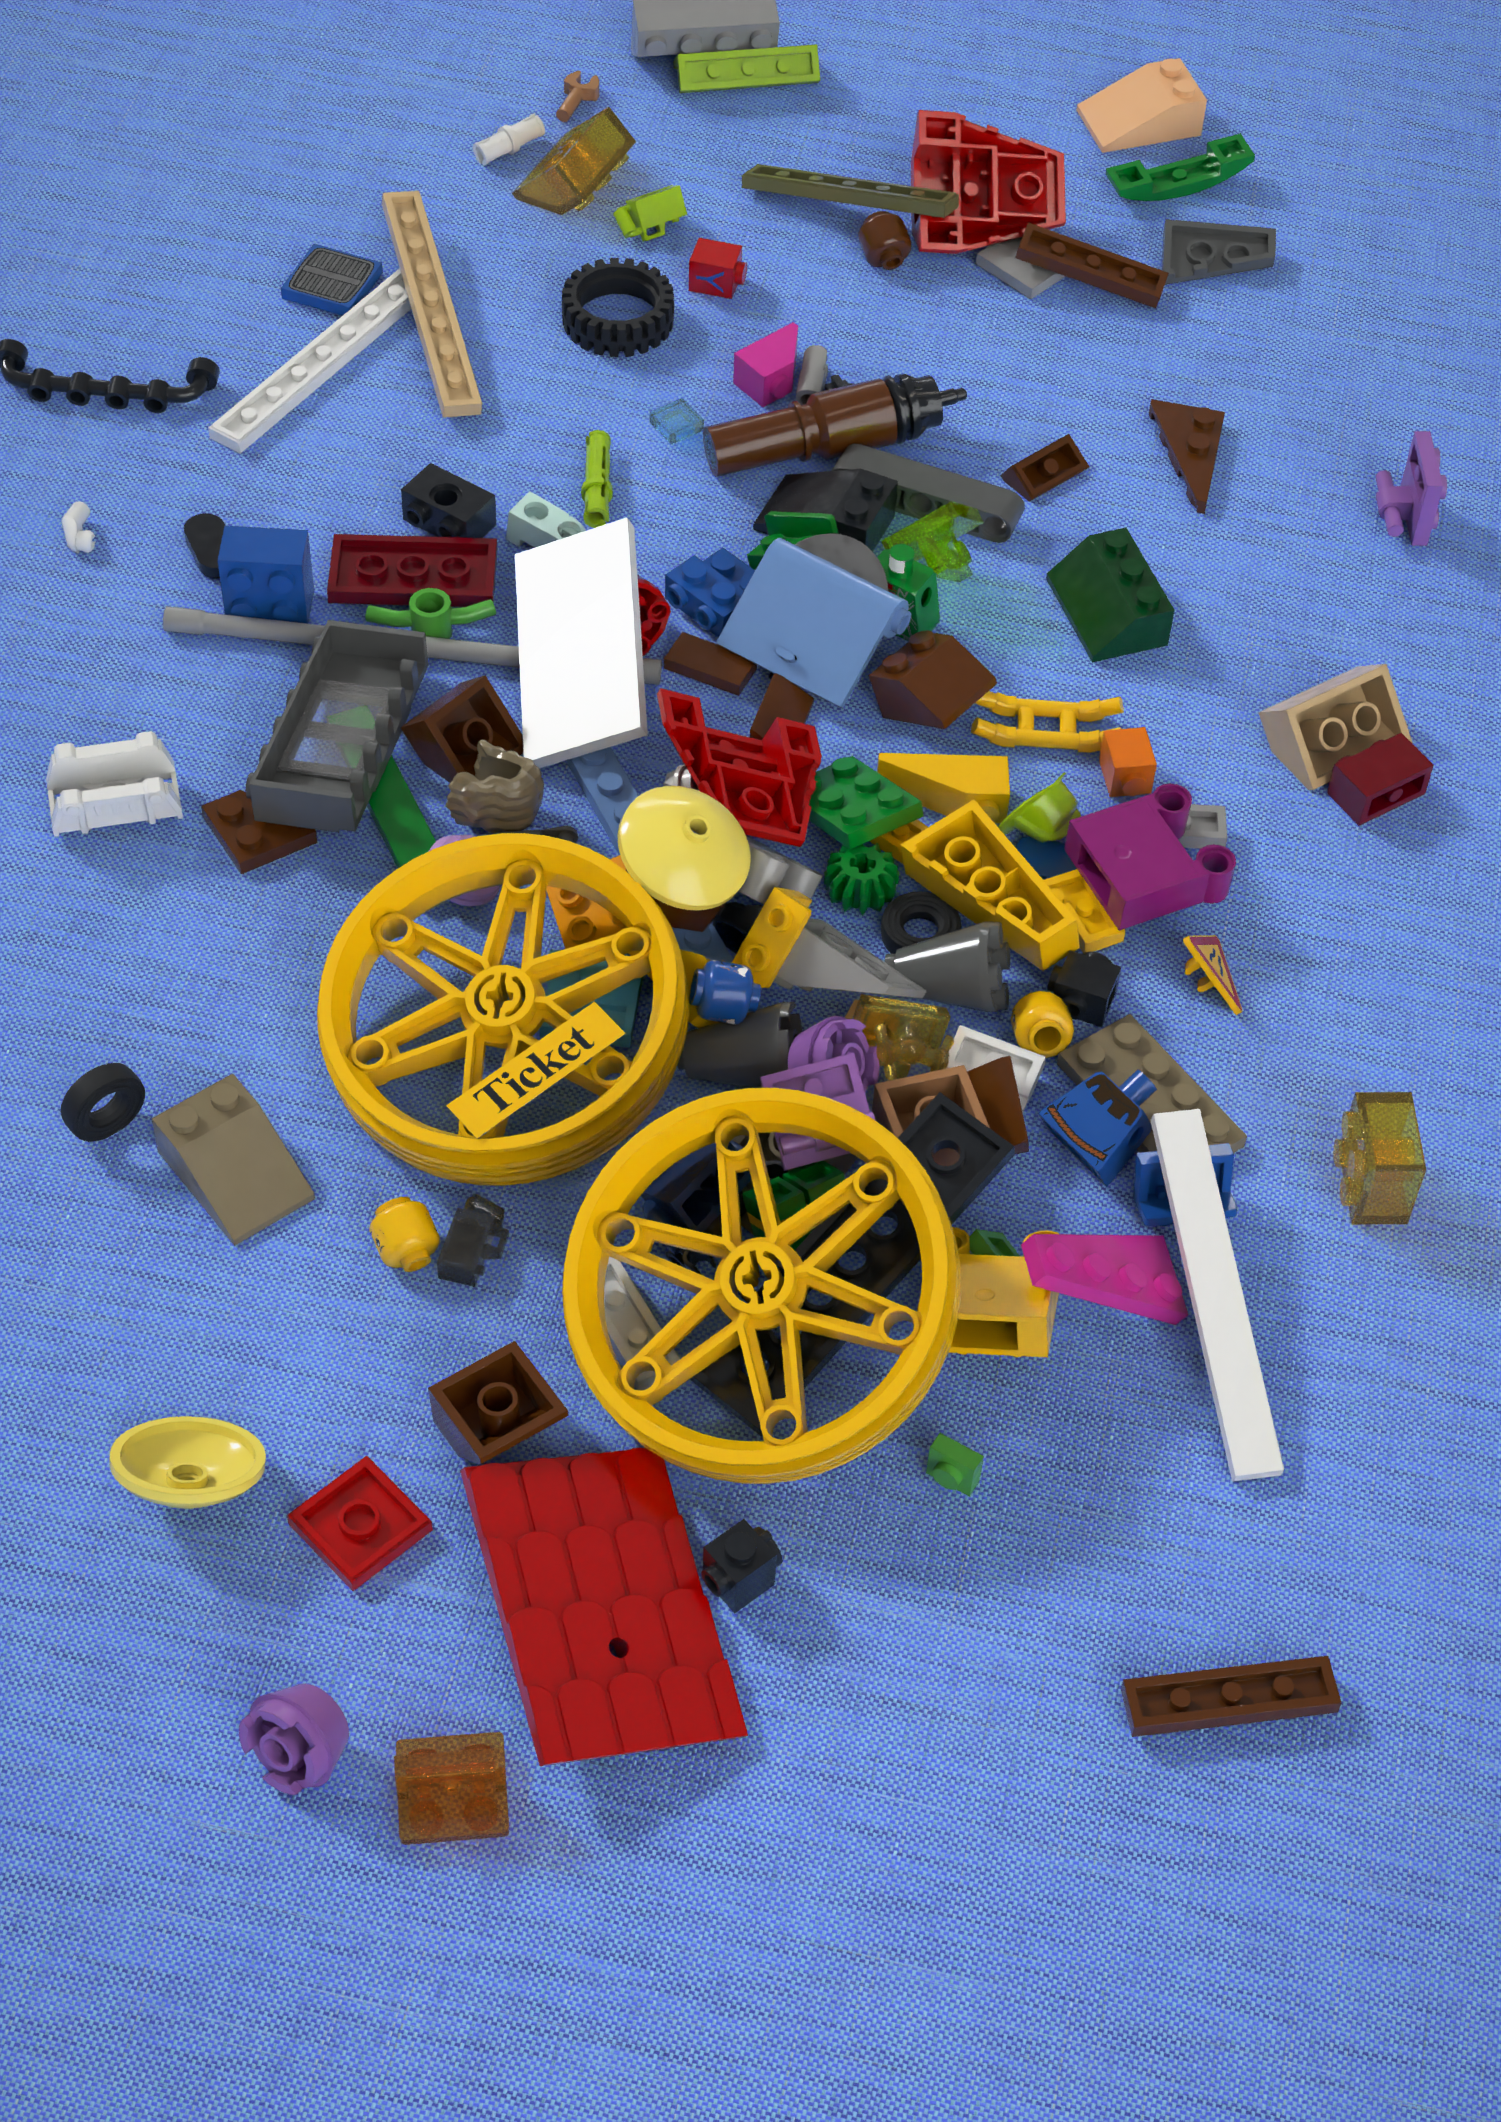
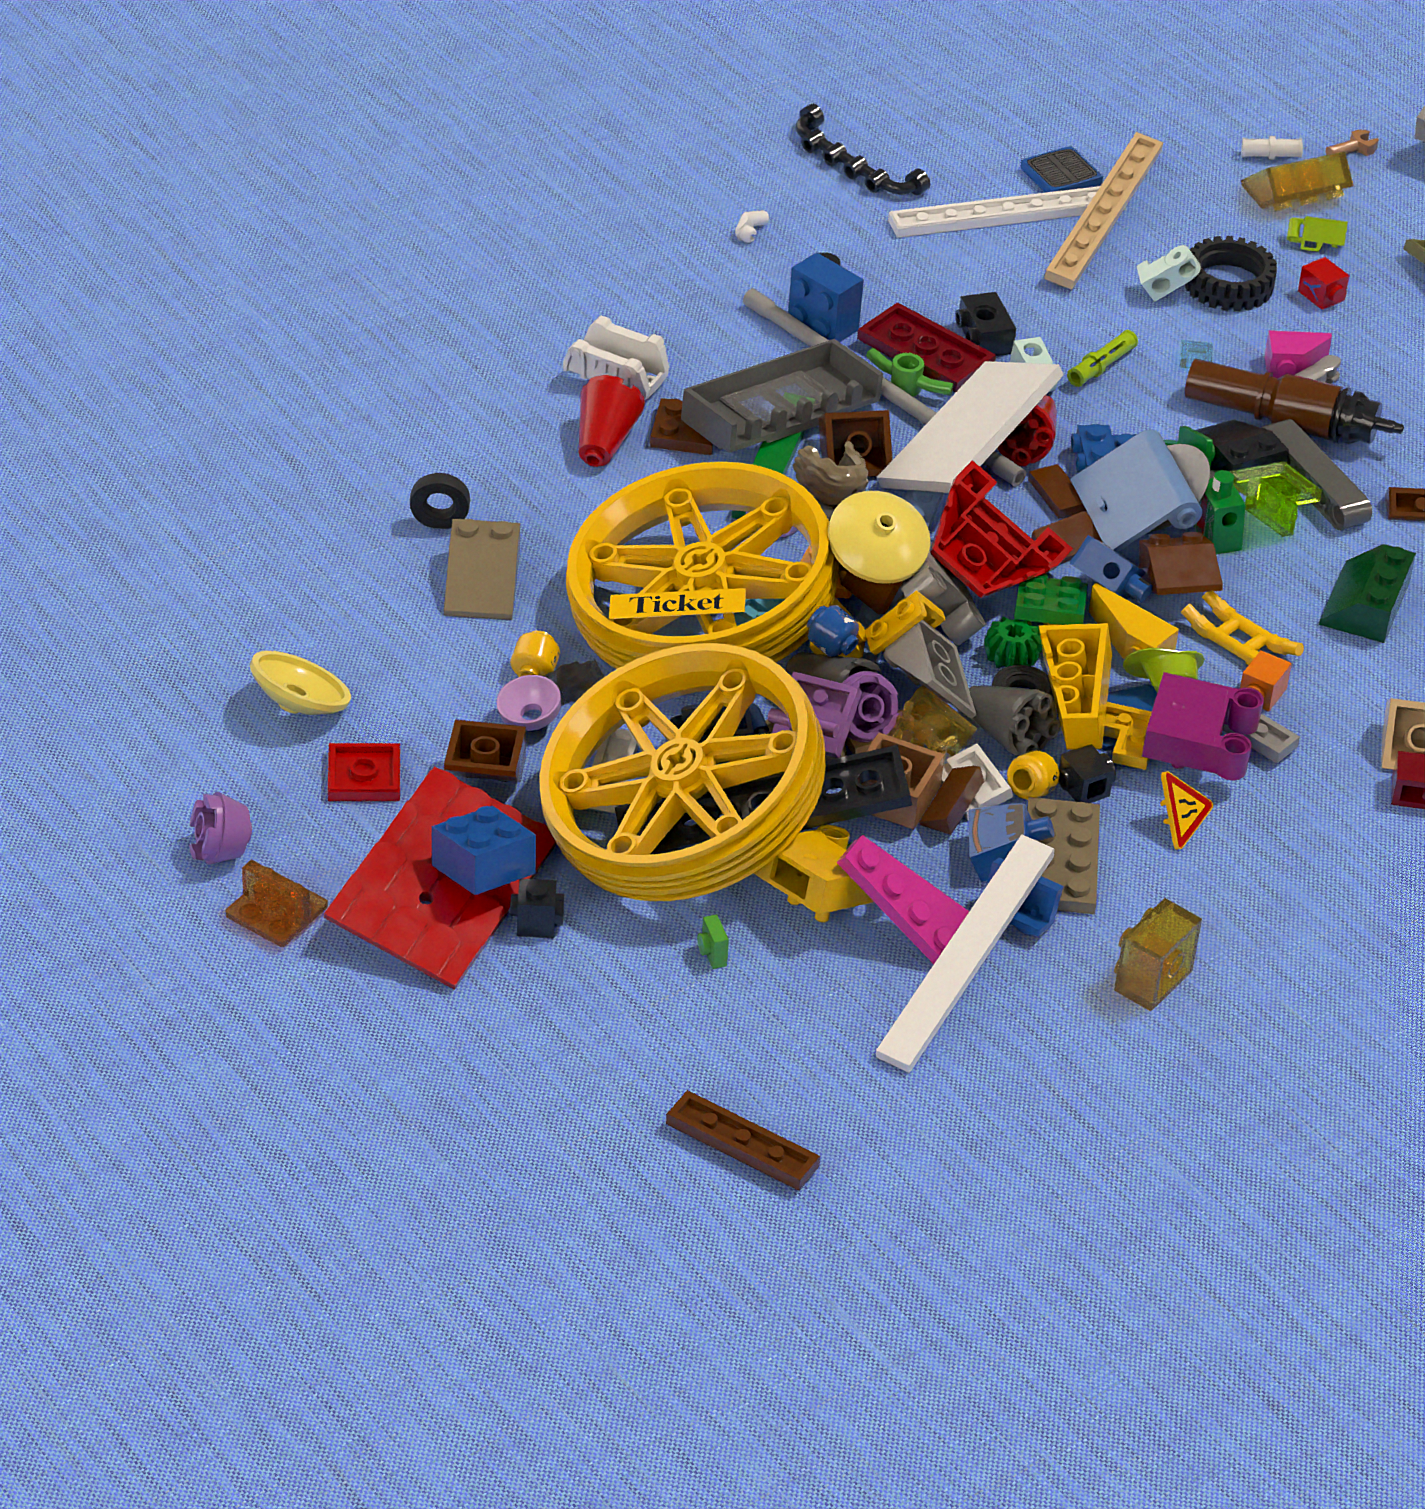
camera: 40 degrees right, 10 degrees down
(180, 873) = (606, 417): none -> red cone
(461, 1280) = (527, 694): none -> lavender piece
(570, 340) = (1168, 272): none -> light aqua leg
(644, 1544) = (483, 849): none -> blue brick
(860, 724) = (1111, 569): none -> blue torso

